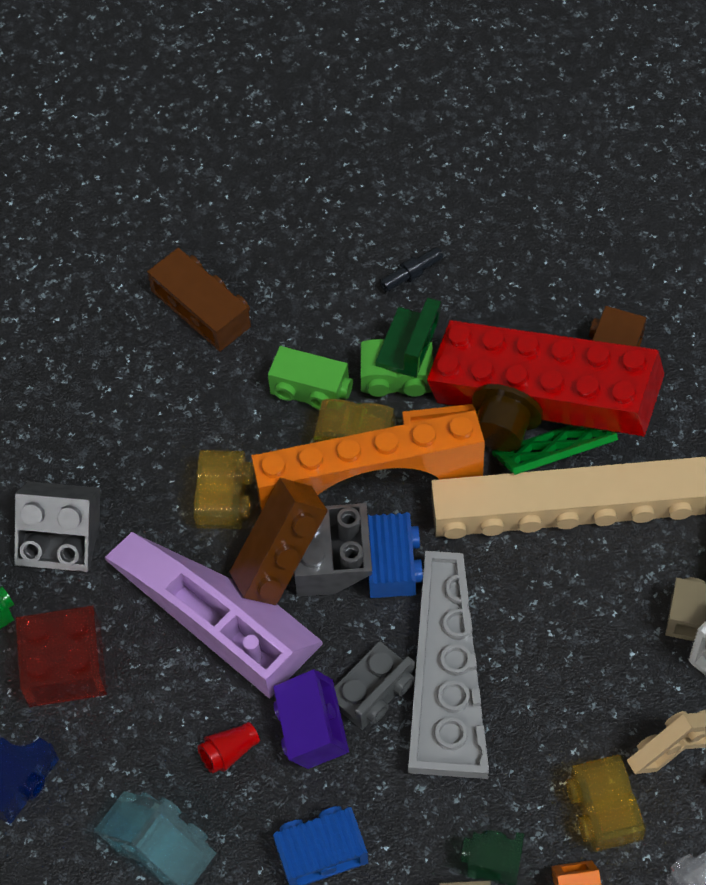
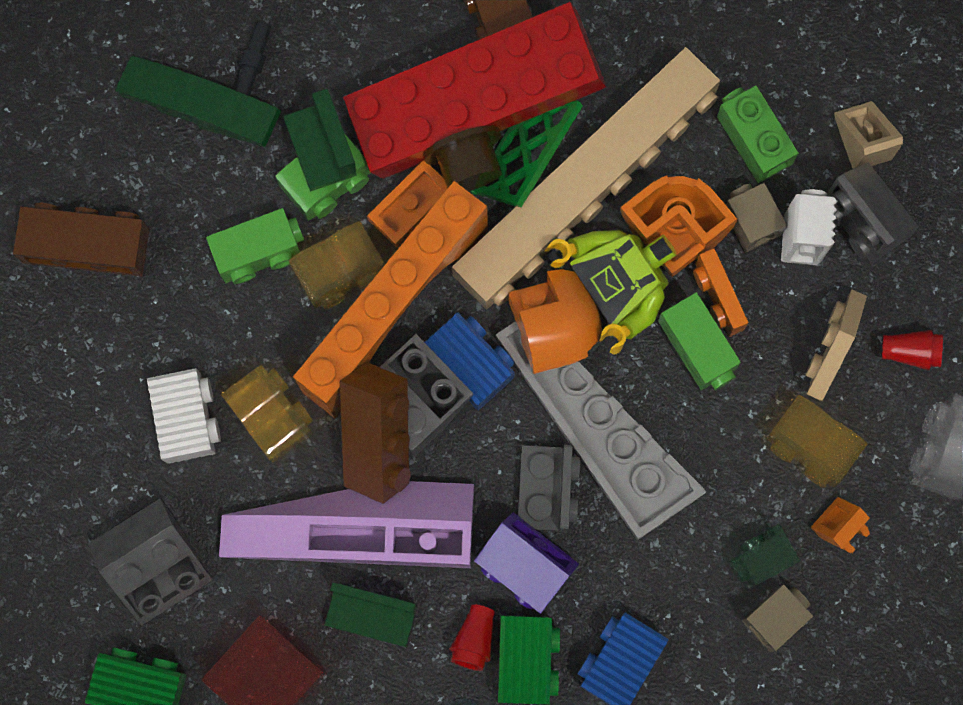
camera: 40 degrees left, 20 degrees up
(163, 450) = (183, 416): none -> white brick
(172, 674) = (370, 615): none -> dark green panel
(251, 790) = (526, 660): none -> green brick
(353, 267) = (198, 101): none -> dark green slope
(477, 568) = (556, 320): none -> orange brick
(549, 574) = (620, 277): none -> torso
(572, 663) = (700, 343): none -> bright green brick
(620, 628) = (712, 278): none -> orange plate
(627, 568) = (683, 212): none -> orange brick

